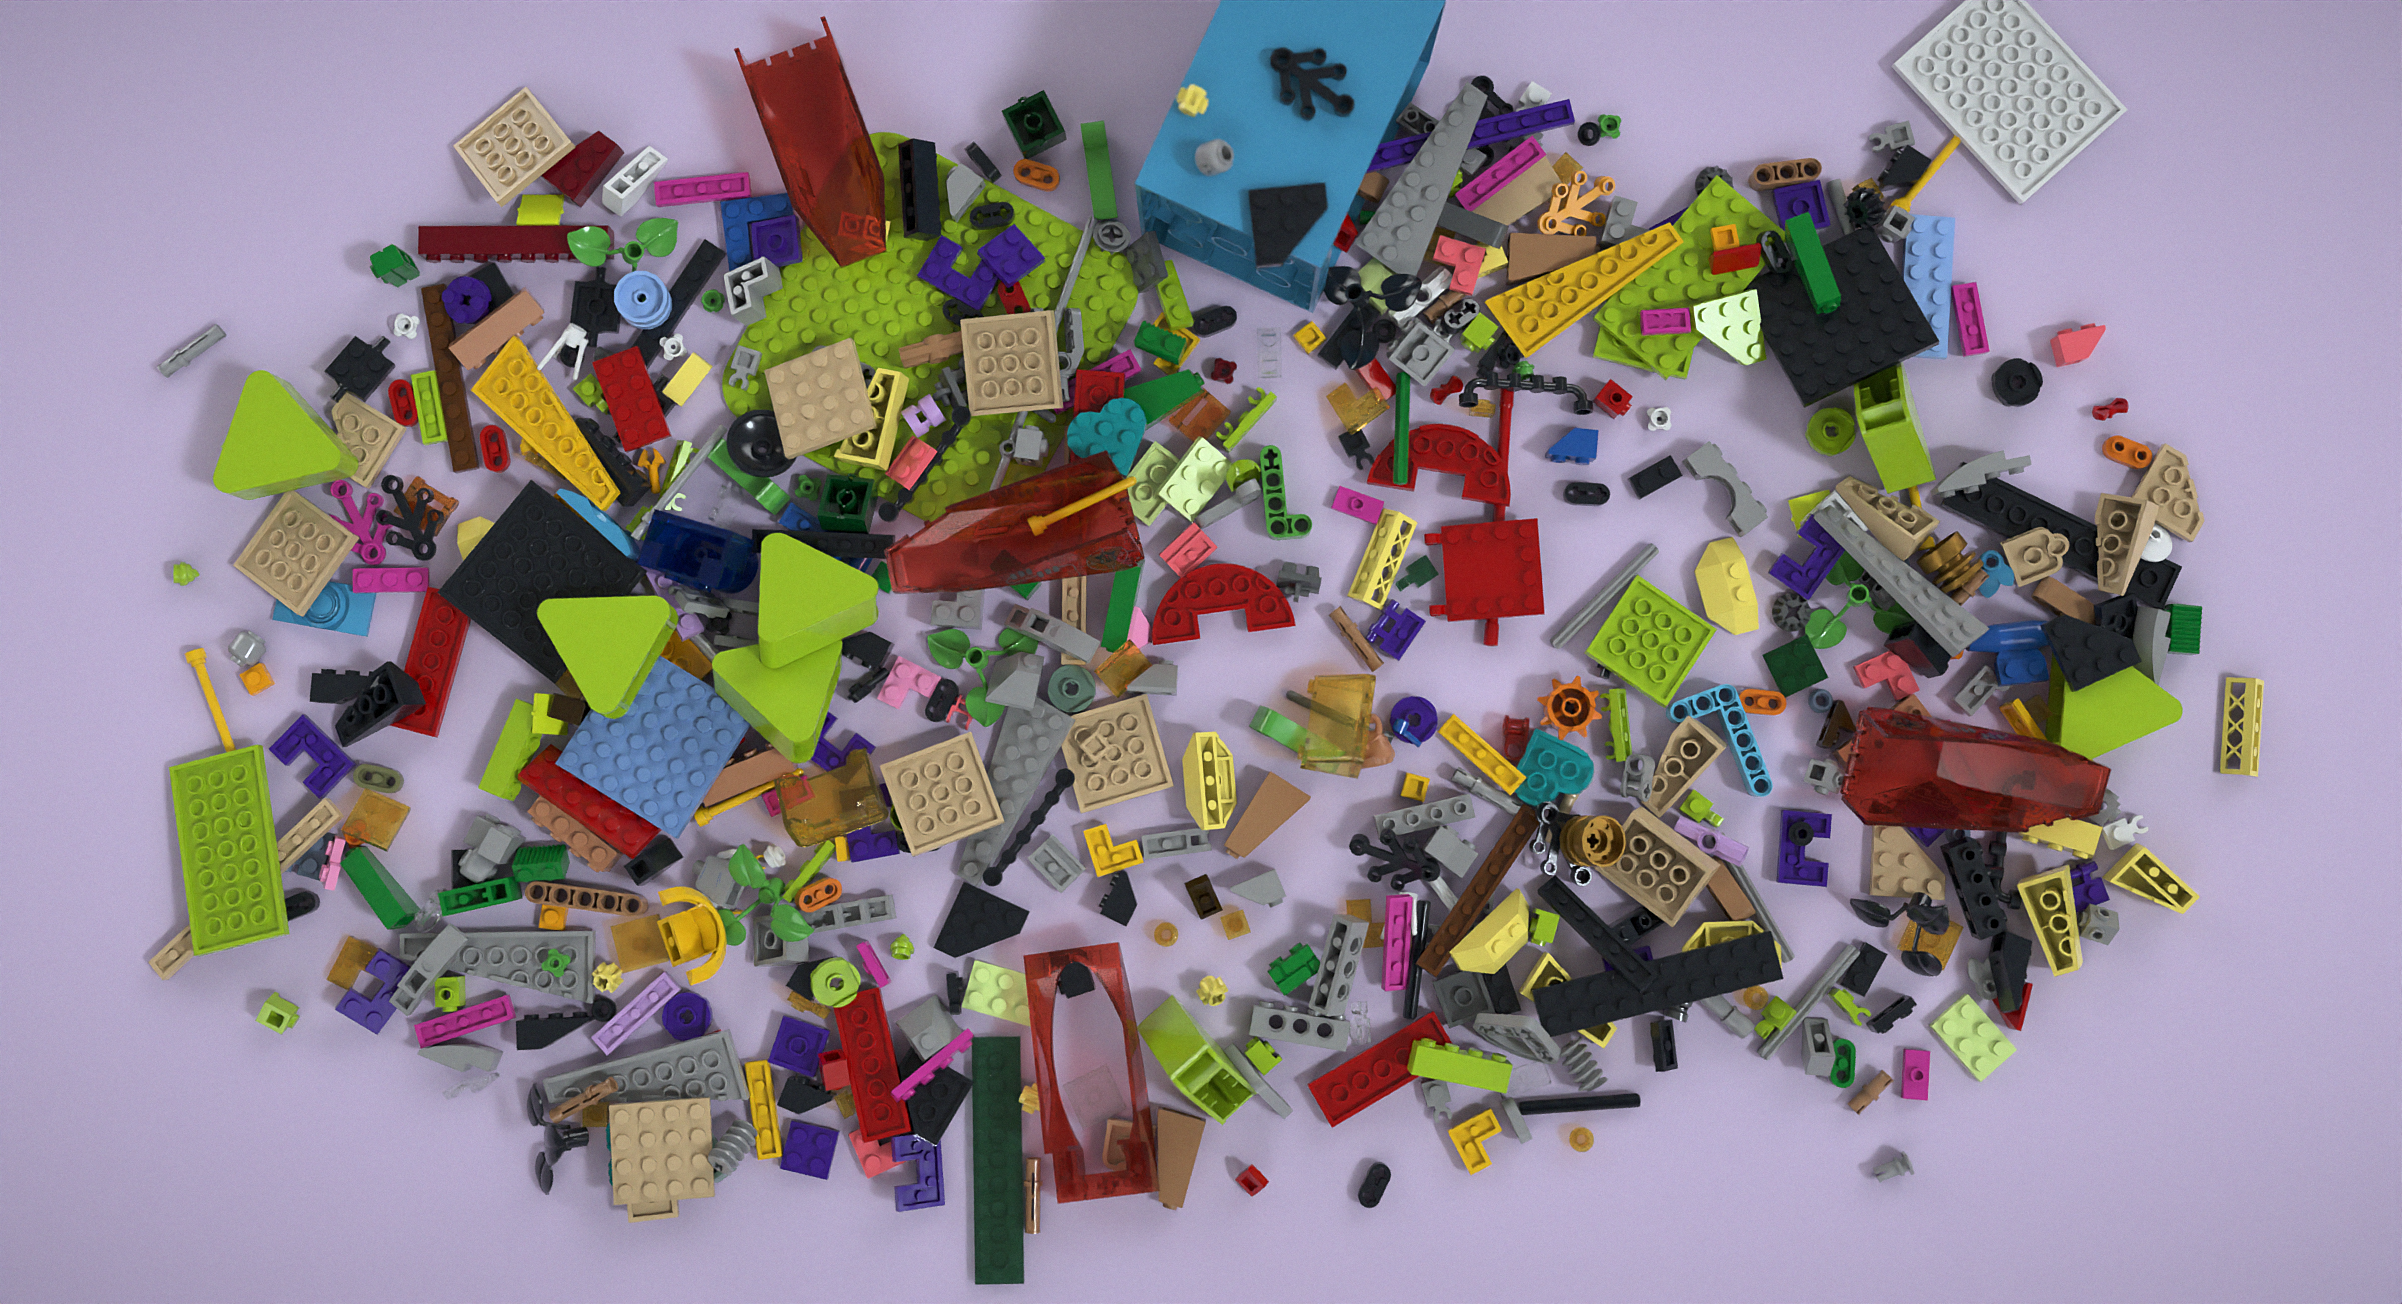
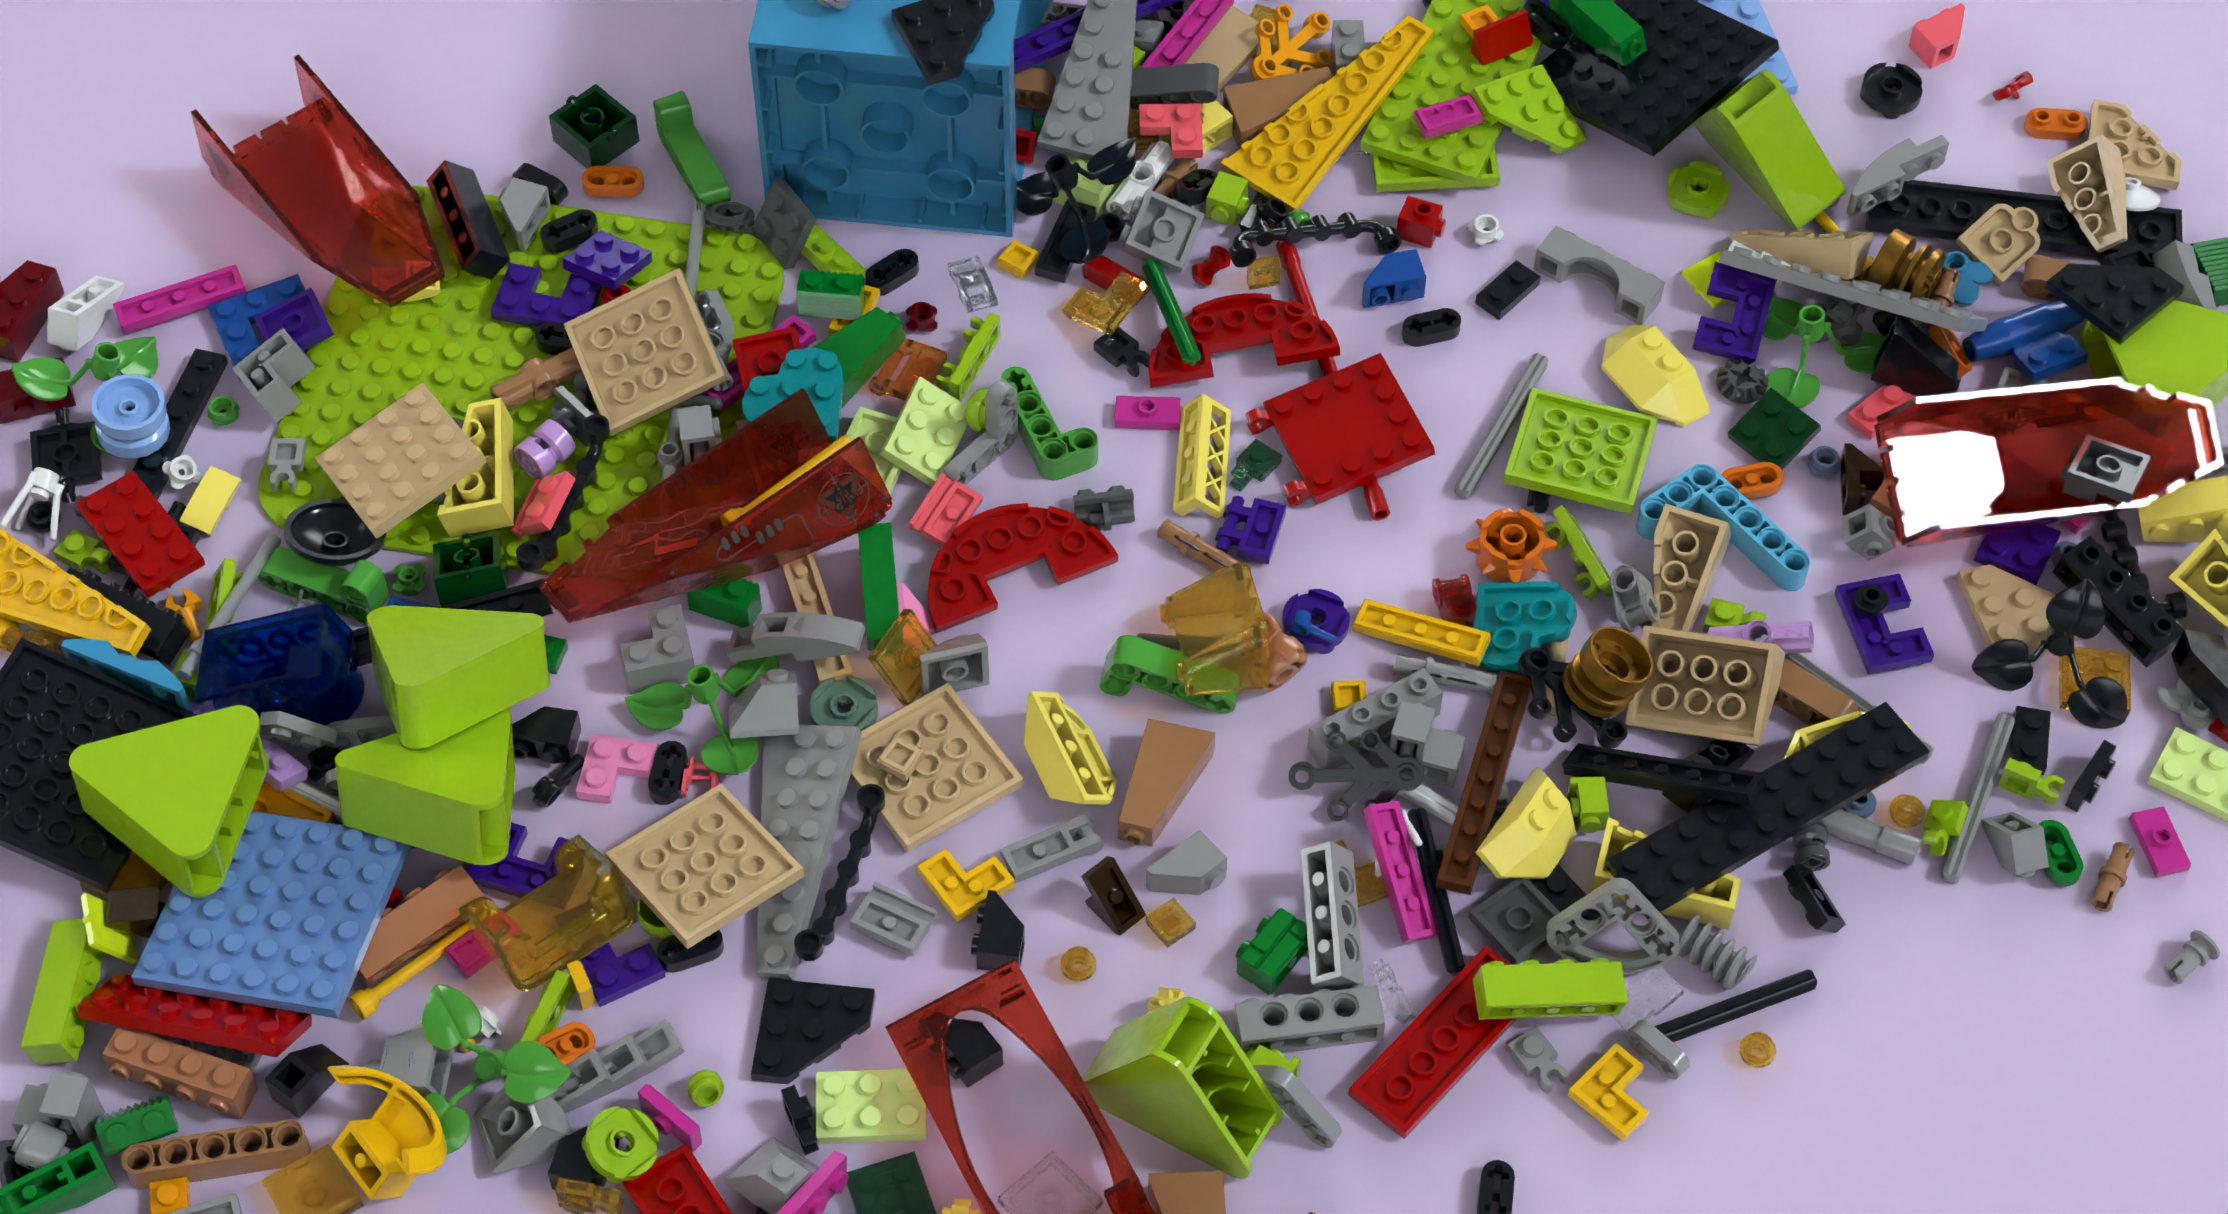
camera: 25 degrees left, 30 degrees down
(1969, 319) = (1805, 44): dark pink plate -> none
(2007, 799) = (2103, 470): none -> dark grey plate

